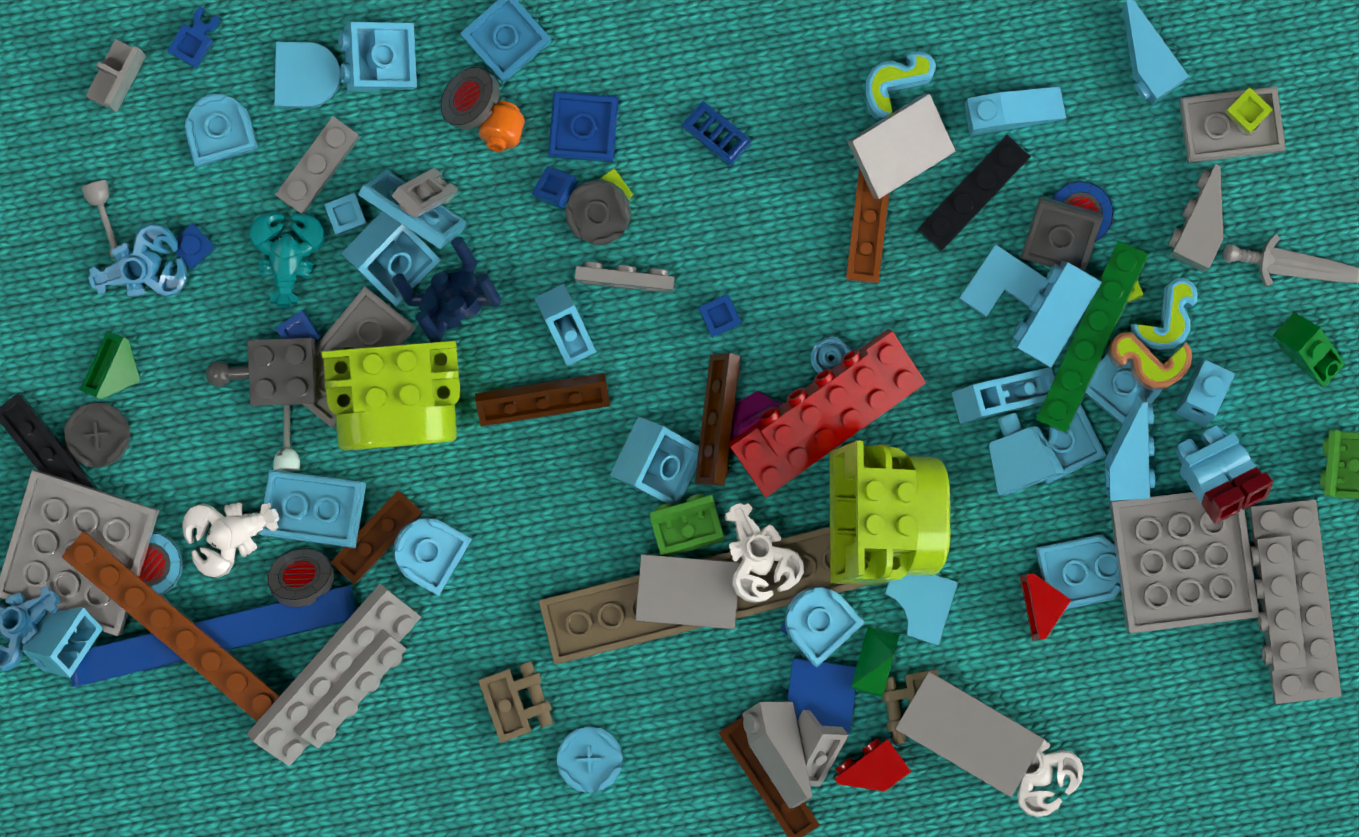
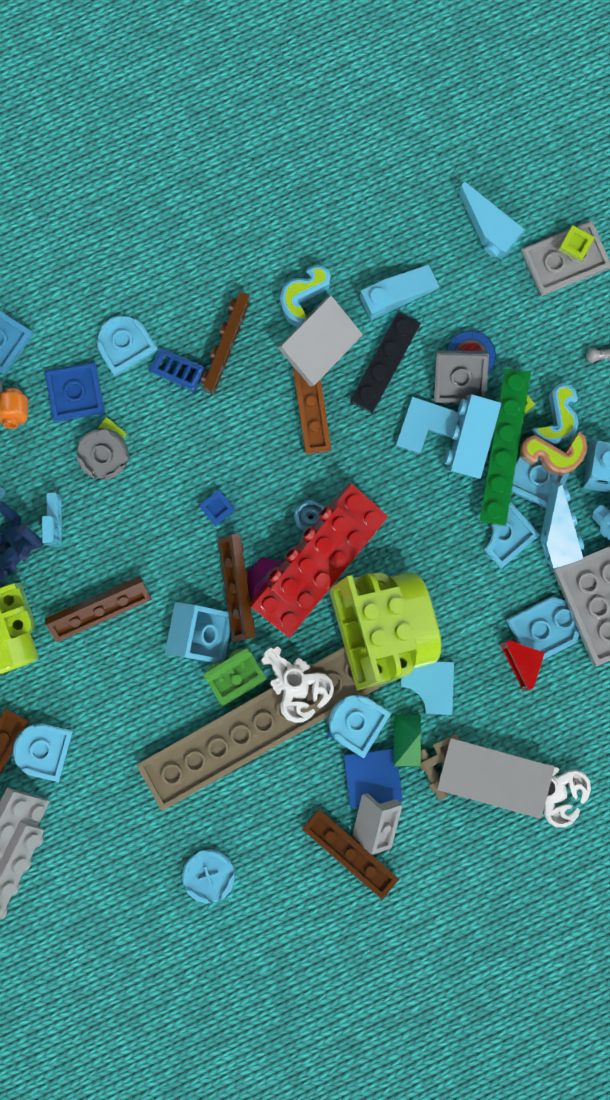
camera: 15 degrees left, 0 degrees up
(506, 705) = (132, 852): dark tan plate -> none
(516, 277) = (53, 521): none -> medium azure tile
(554, 187) = (64, 444): blue plate -> none
(565, 324) = (100, 546): medium azure slope -> none
(624, 277) = (136, 498): light grey plate -> none
(659, 83) = (124, 343): none -> medium azure tile
(686, 592) = (248, 727): light grey tile -> none
(777, 745) = (350, 828): light grey slope -> none
(792, 105) = (228, 332): none -> reddish brown plate
(875, 770) = (429, 825): red slope -> none
(1002, 395) = (449, 510): medium azure slope -> none
(1021, 457) = (476, 553): medium azure torso -> none
(1203, 228) = (566, 340): light grey slope -> none

